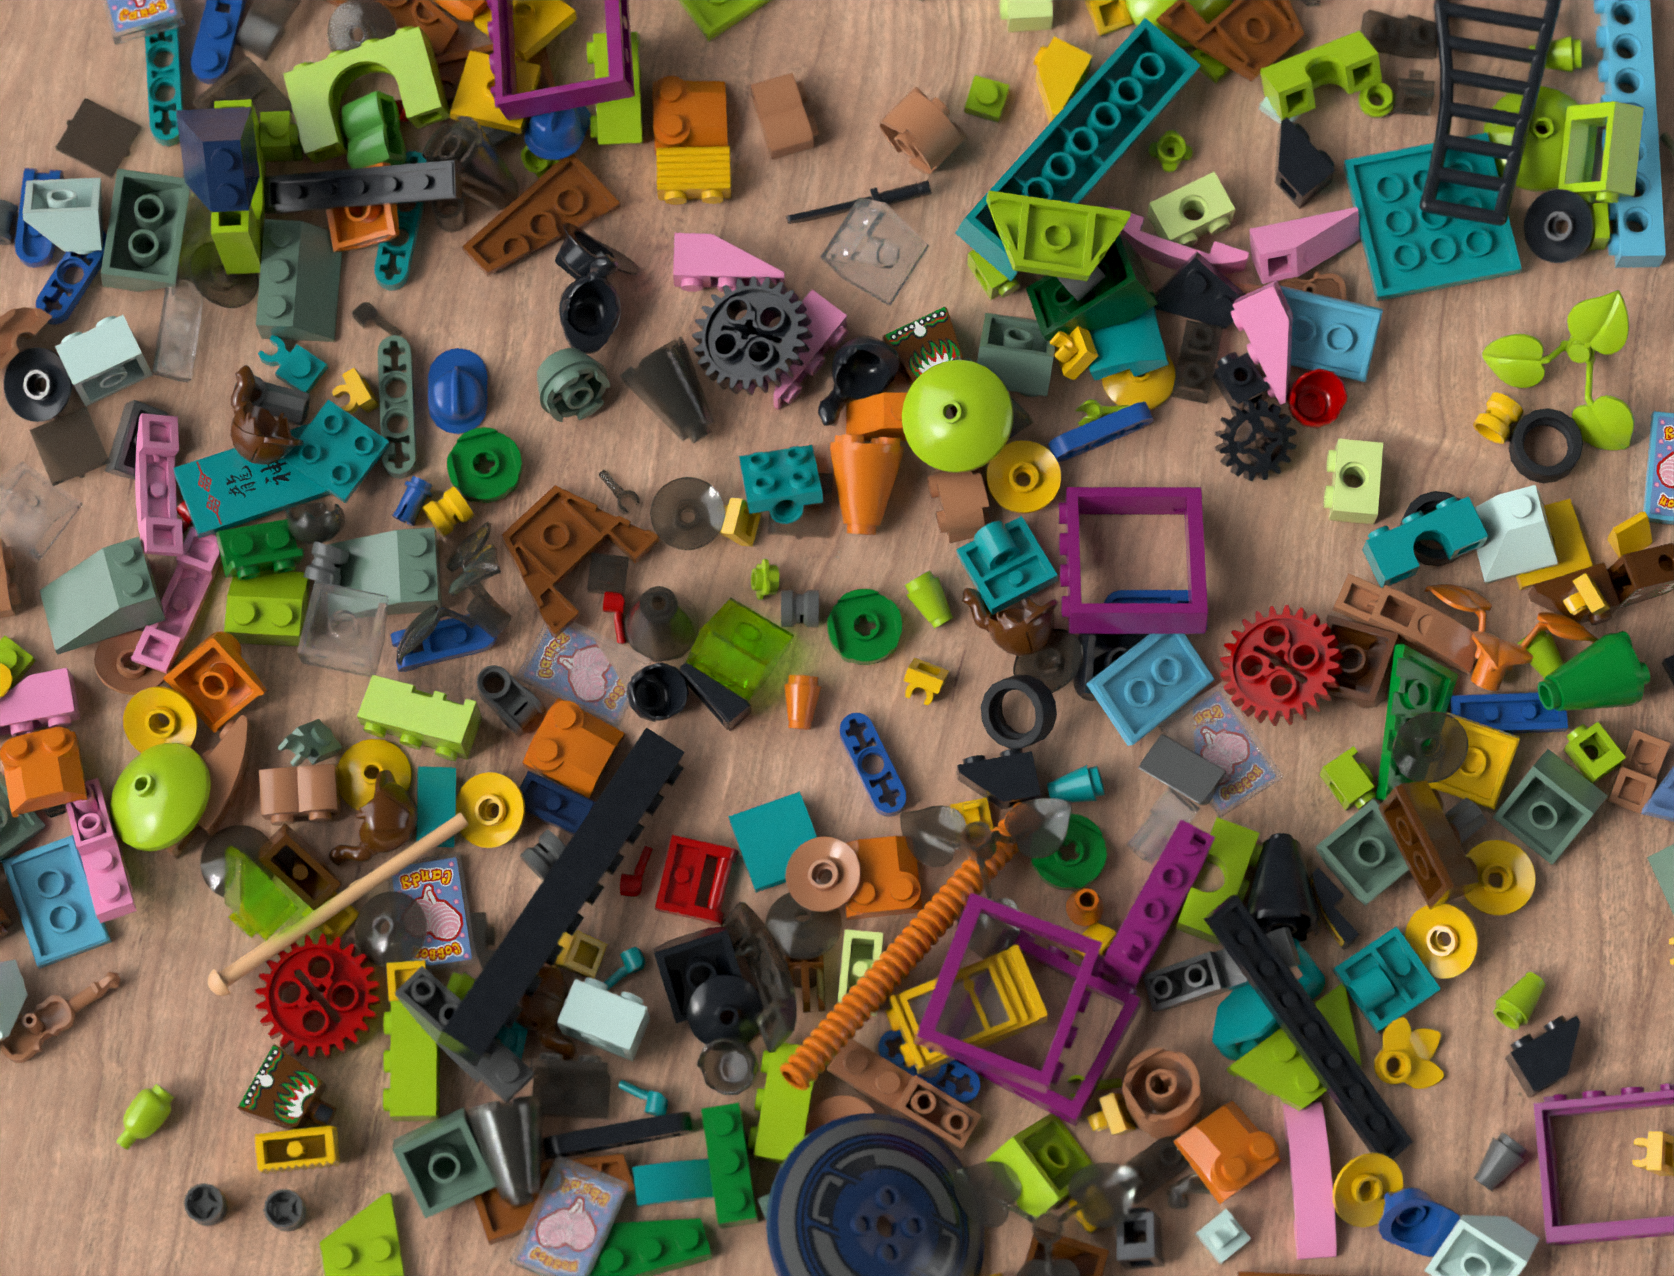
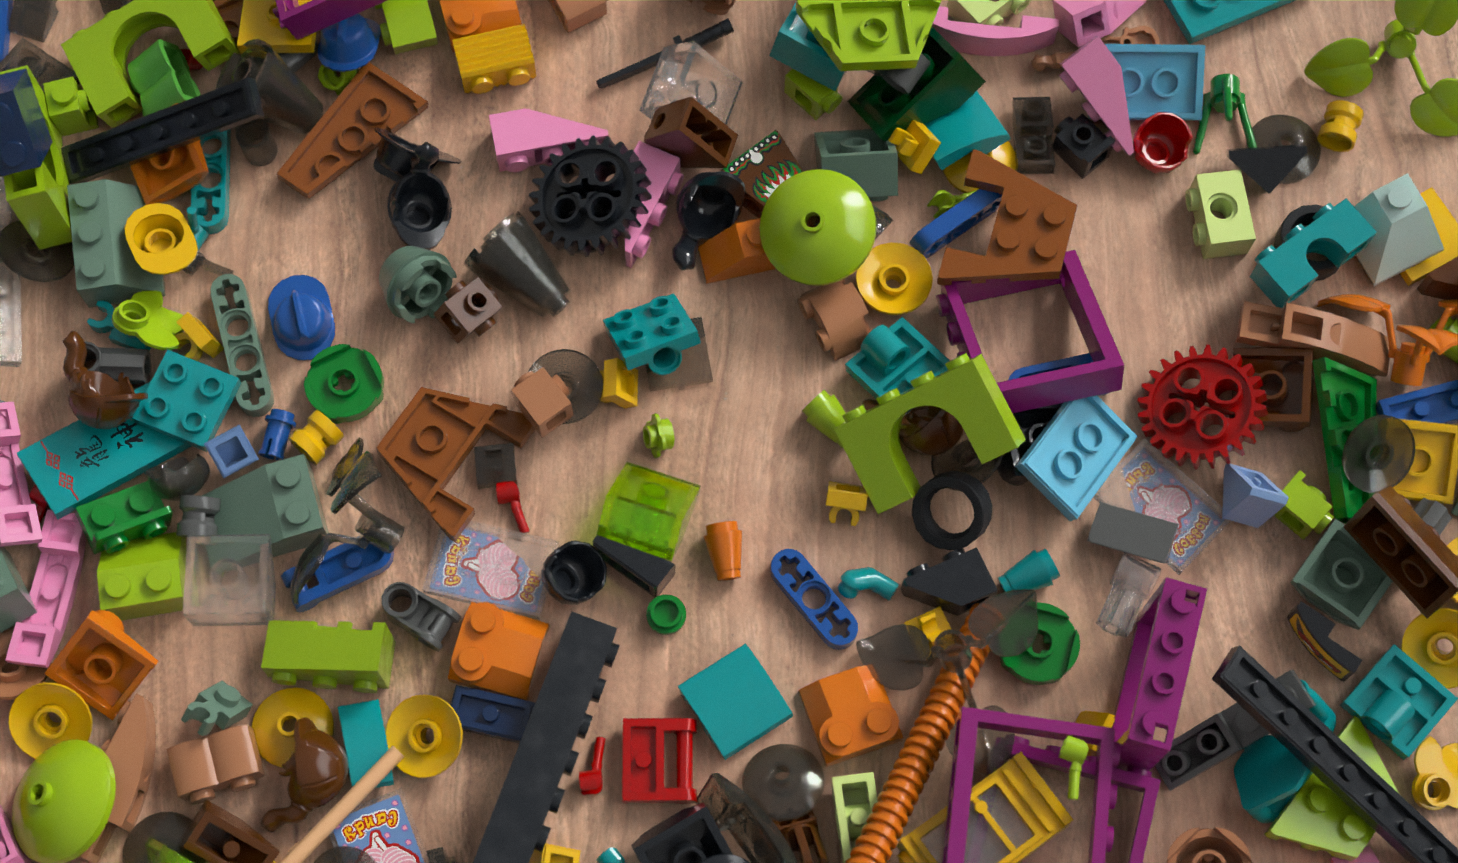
camera: 15 degrees left, 5 degrees down
(316, 367) = (148, 320): none -> lime plate
(342, 292) = (160, 239): none -> yellow piece
(368, 509) = (231, 451): none -> medium blue slope
(372, 288) = (198, 232): none -> teal hand
(544, 854) = (492, 770): dark grey wheel -> none
(615, 420) = (468, 309): none -> reddish brown brick
(618, 491) = (488, 381): clear smoke hand -> none
(661, 624) = (562, 502): clear smoke cone -> none
(664, 524) = (542, 400): none -> nougat brick
(733, 748) = (666, 614): none -> green plate
(800, 608) = (701, 456): dark grey wheel -> none
(813, 860) = (779, 710): nougat dish -> none
(853, 286) = (691, 134): none -> reddish brown torso
(854, 646) = (779, 441): green plate -> none
(864, 479) = (736, 312): orange cone -> none
(925, 757) = (865, 579): none -> teal arm
(1049, 606) = (963, 390): none -> lime arch
(1059, 955) = (1075, 752): none -> lime hand
(1084, 915) = (1065, 702): orange cone -> none
(1158, 462) = (1027, 232): none -> dark orange wing
(1199, 293) = (1021, 69): black wing -> none
(1232, 853) = (1216, 638): lime arch -> none
(1250, 424) = (1102, 184): black gear -> none
(1283, 890) = (1271, 630): black cone -> none
(1301, 758) = (1250, 496): none -> light blue slope
(1393, 365) = (1225, 98): none -> green plant
(1411, 441) = (1267, 164): none -> black slope
(1434, 443) = (1275, 128): none -> clear smoke dish
(1563, 424) = (1403, 119): black tyre -> none

